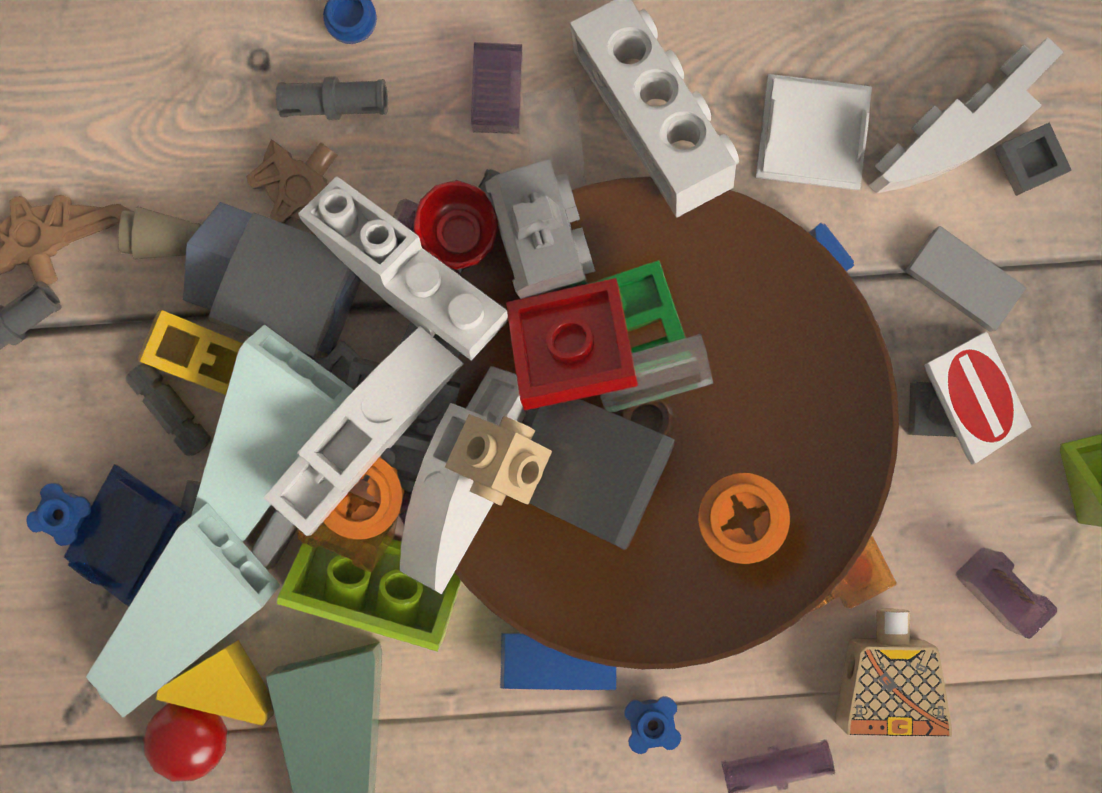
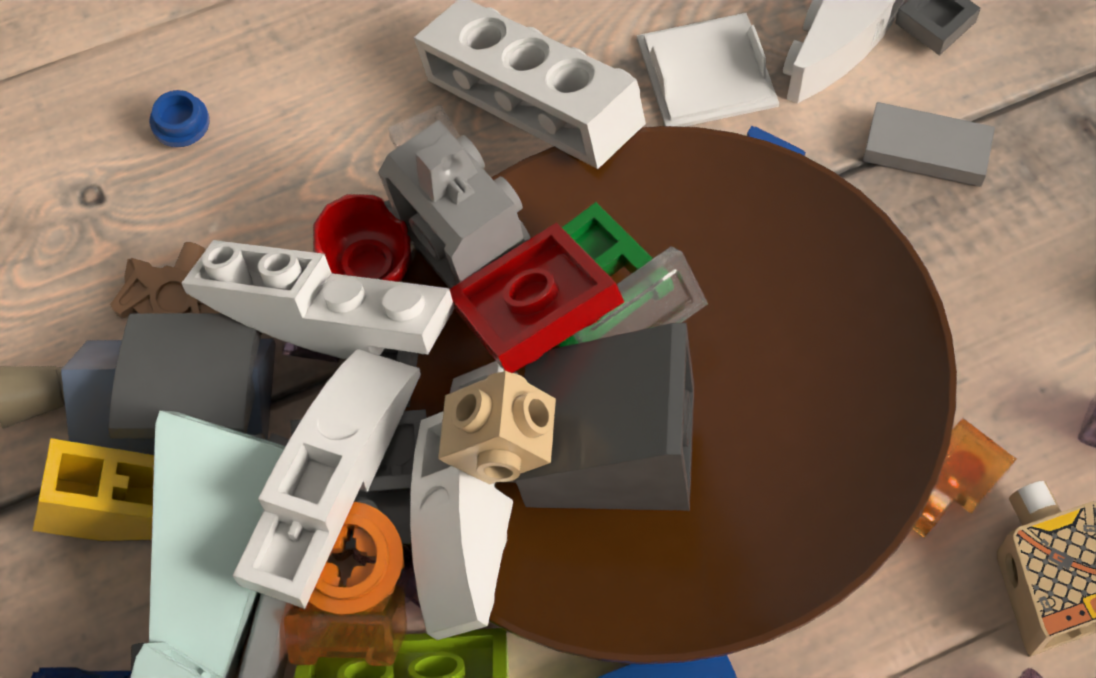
camera: 15 degrees left, 25 degrees down
(168, 409) = (85, 579): dark grey axle -> none
(332, 98) = (183, 197): dark grey pin -> none
(497, 88) = (358, 128): piece -> none
(769, 527) = (801, 393): orange gear -> none
(927, 413) = (968, 274): dark grey plate -> none
(977, 397) = (999, 239): piece -> none

